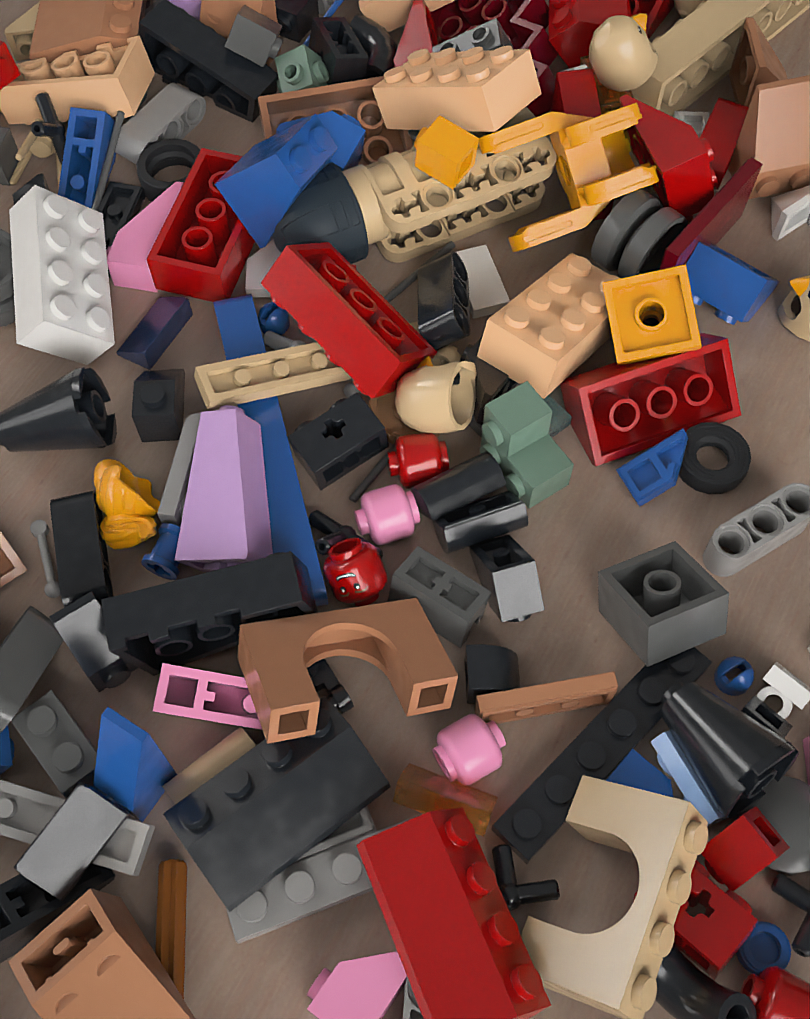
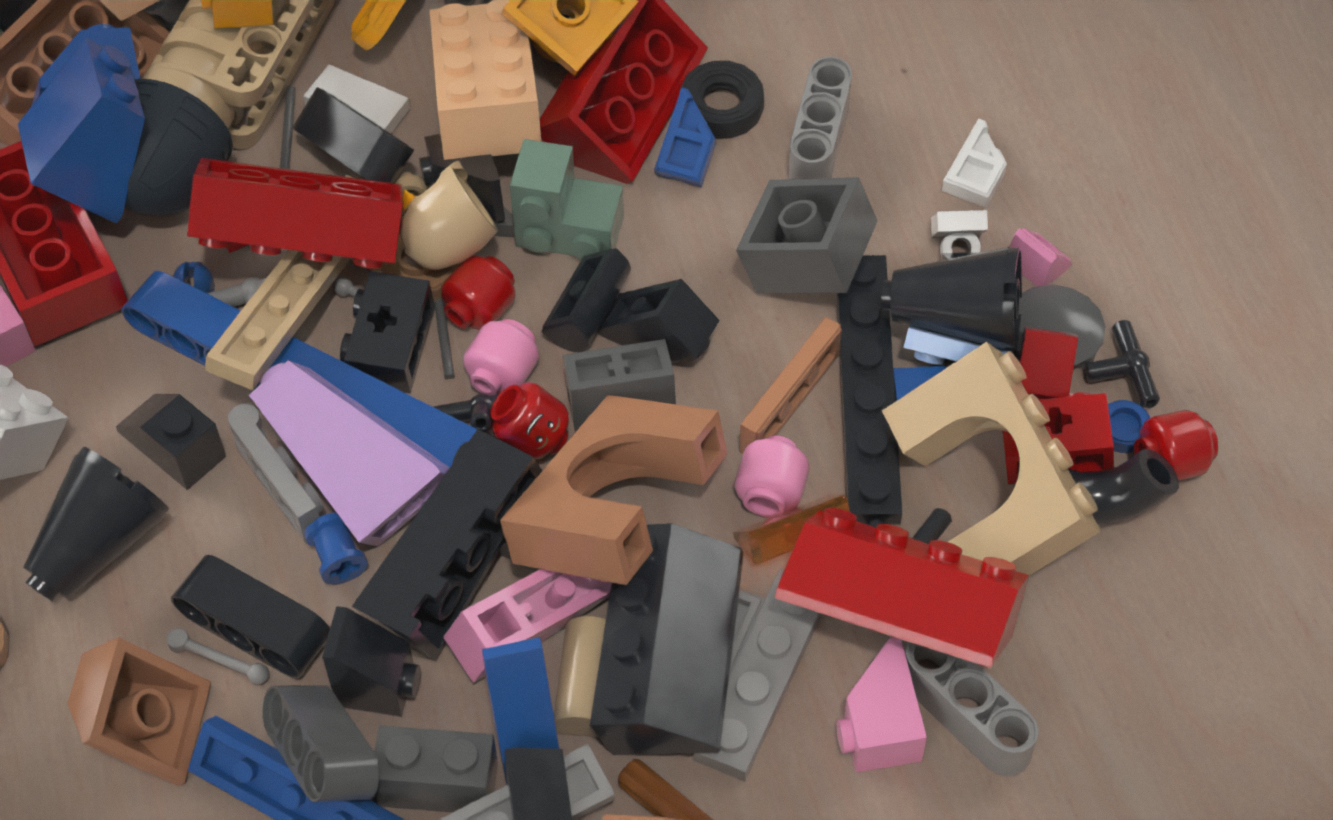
camera: 45 degrees left, 5 degrees down
(126, 503) = (251, 542): light orange hair -> none
(156, 331) = (82, 382): dark blue slope -> none
(258, 267) = (137, 247): white tile -> none
(458, 486) = (541, 281): black brick -> none
(489, 670) = (729, 399): black brick -> none
(739, 684) = (910, 240): blue hinge -> none

